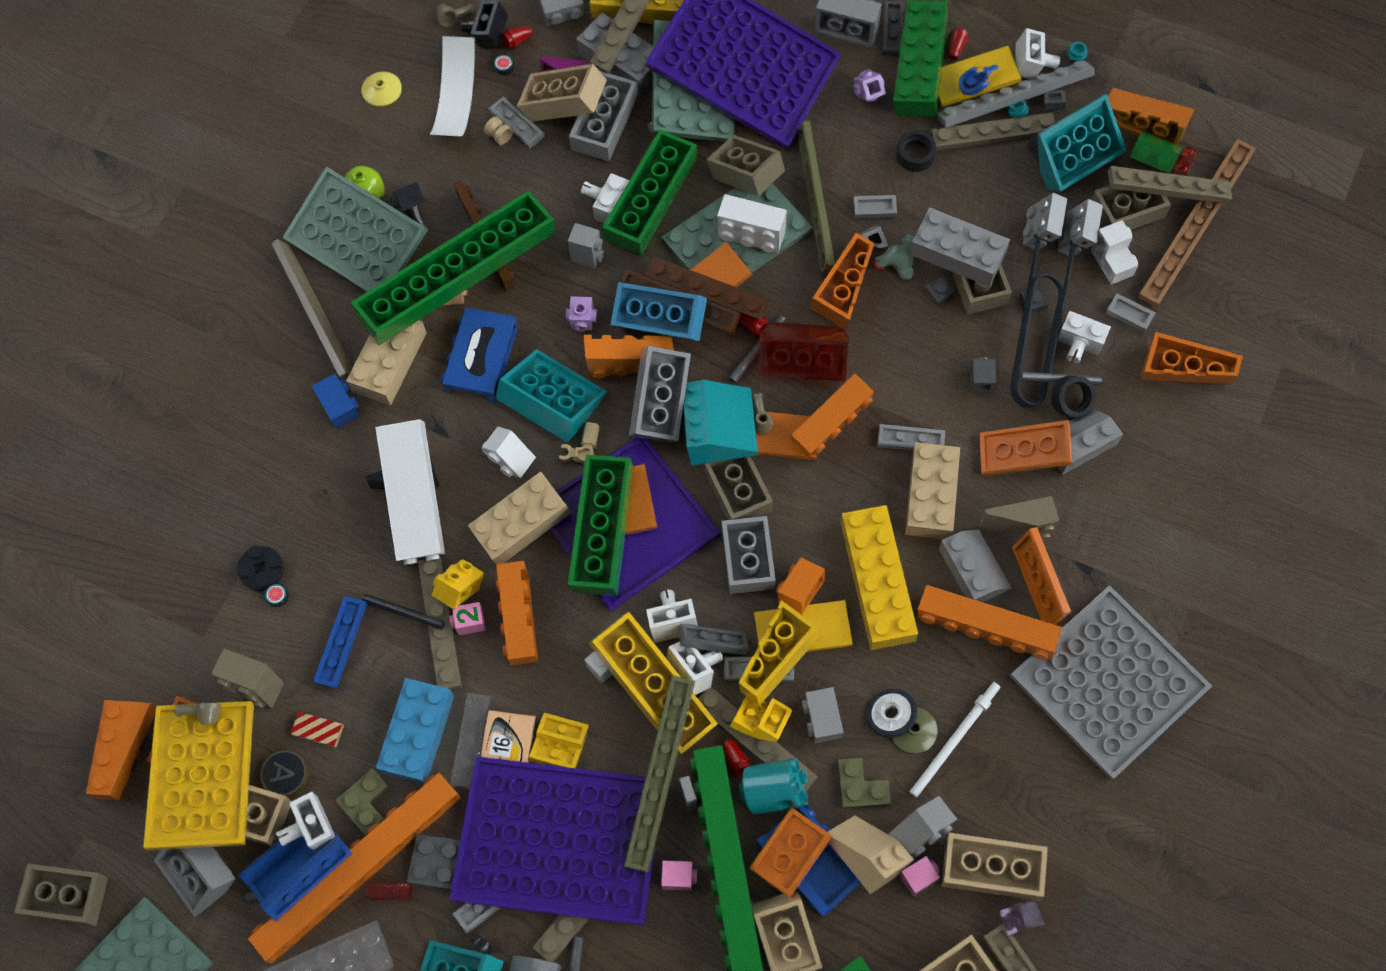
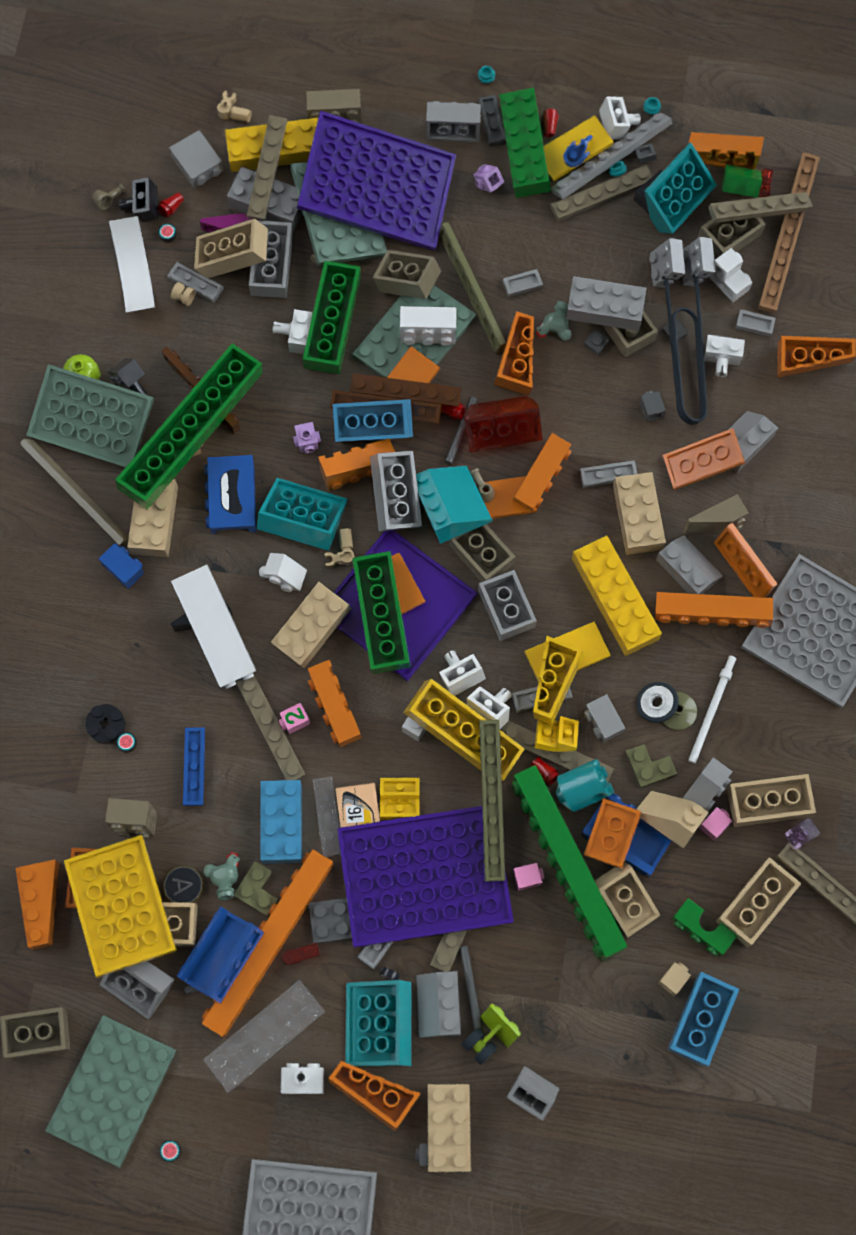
camera: 20 degrees left, 5 degrees up
(206, 712) = (109, 854): dark tan bar -> none
(310, 823) = (223, 918): white brick -> none
(317, 729) = (198, 842): tile -> none
(332, 775) = (224, 876): none -> sand green animal
(384, 94) = (69, 286): light yellow dish -> none
(405, 612) = (239, 727): black bar -> none
(457, 583) = (277, 692): yellow brick -> none
(585, 246) = (292, 378): light grey brick -> none
(688, 793) = (517, 810): light grey tile -> none
(713, 639) = (500, 682): dark grey tile -> none
(801, 585) = (556, 619): orange brick -> none
(876, 236) = (531, 308): light grey brick -> none
(919, 137) = (544, 213): black tyre -> none
(1051, 377) = (715, 393): dark grey bar -> none
(1088, 400) = (718, 406): black tyre -> none

